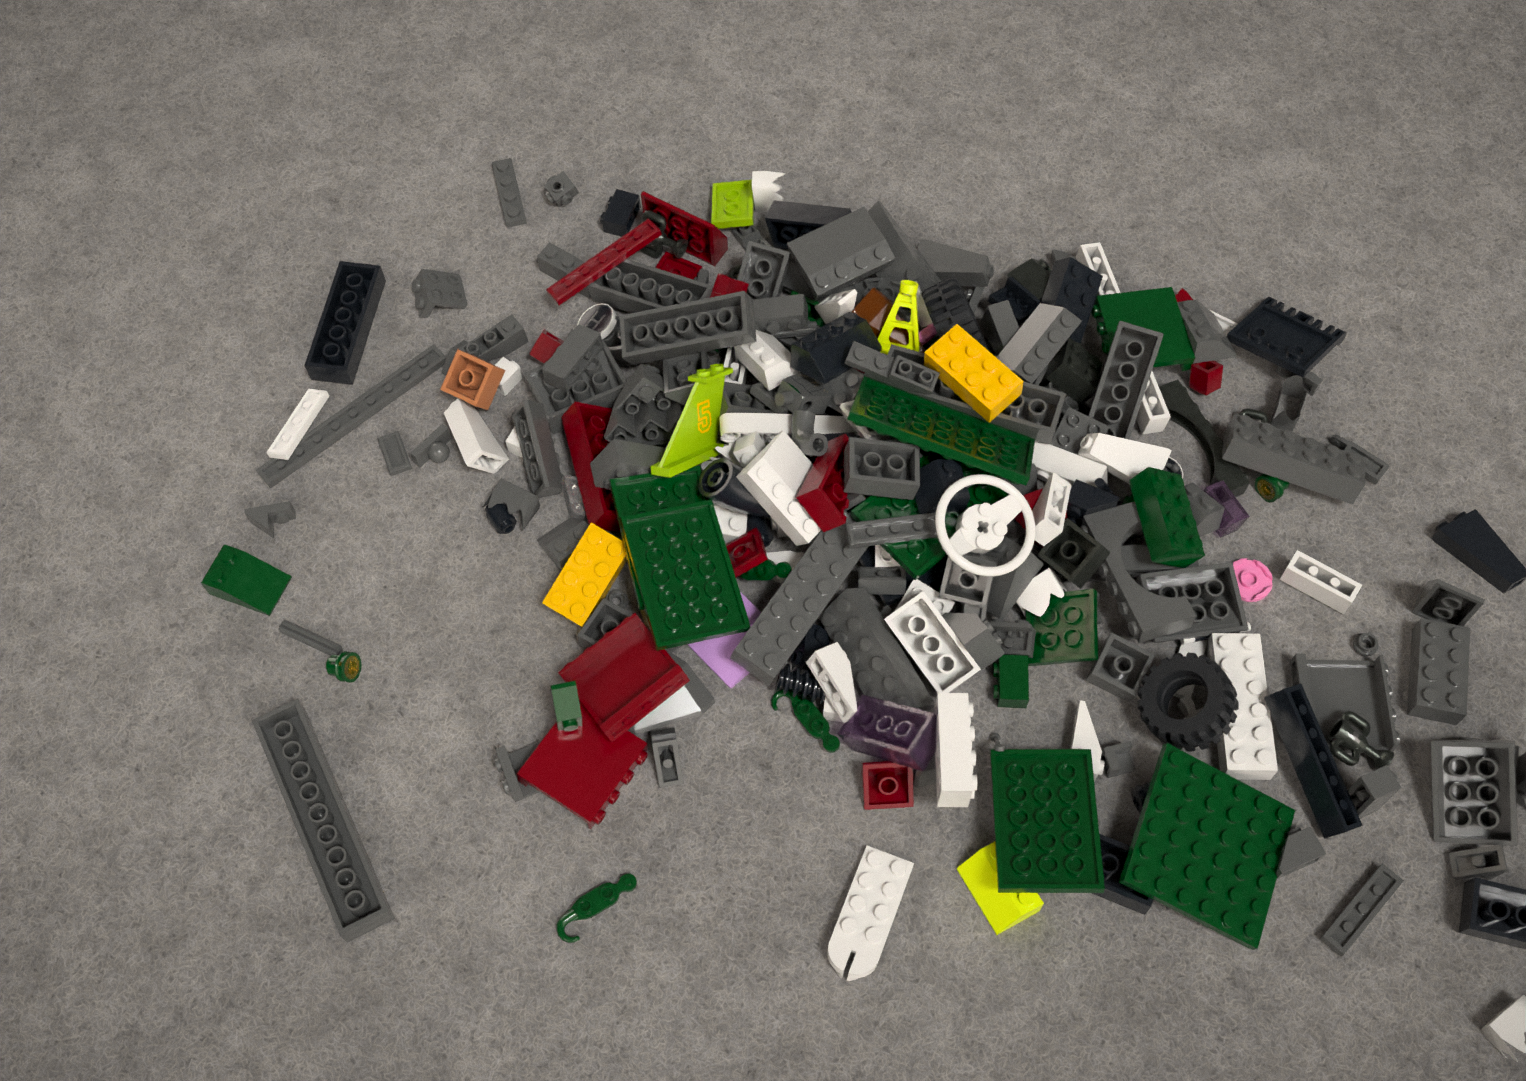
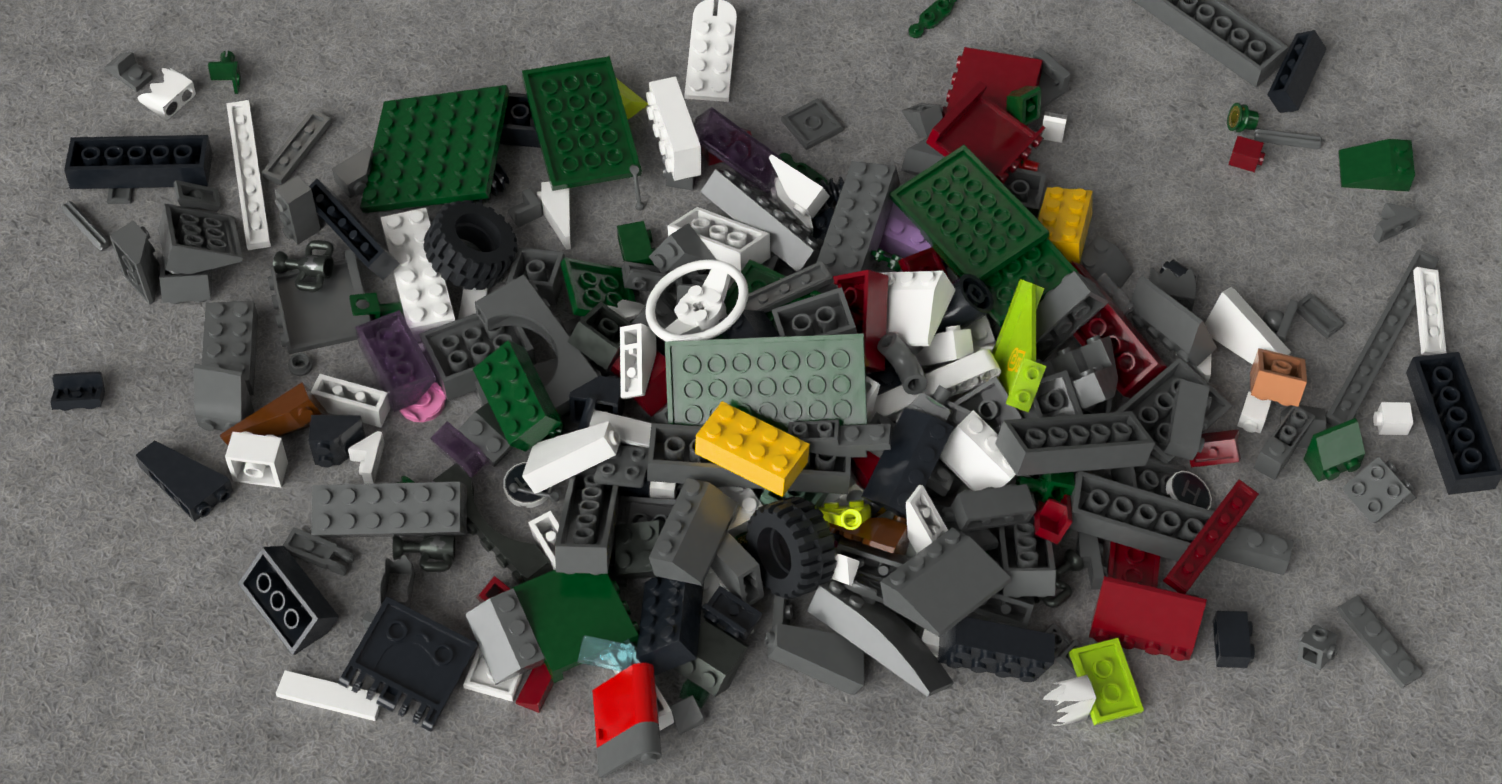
camera: 160 degrees right, 5 degrees down
(256, 702) = (1297, 71): none -> black brick
(363, 626) = (1247, 154): none -> dark red brick
(390, 342) = (1393, 418): none -> white brick
(458, 324) = (1335, 451): none -> dark green slope
(534, 714) = (1054, 125): none -> white slope
(785, 791) = (812, 124): none -> dark grey tile
(1115, 248) = (627, 719): none -> red door
(1125, 287) = (605, 653): none -> clear light blue slope
(1277, 607) = (395, 359): none -> clear purple slope
(1290, 671) = (376, 309): none -> dark green bracket
(1304, 532) = (369, 454): none -> white slope
(1339, 543) = (332, 437): none -> black slope
(1363, 349) = (327, 695): none -> white tile
(1382, 422) = (287, 598): none -> black slope
(1388, 569) = (281, 416): none -> reddish brown wedge
(1413, 540) = (256, 459): none -> white brick
(1418, 891) = (248, 175): none -> white plate
(1446, 1049) = (226, 70): none -> dark green bracket

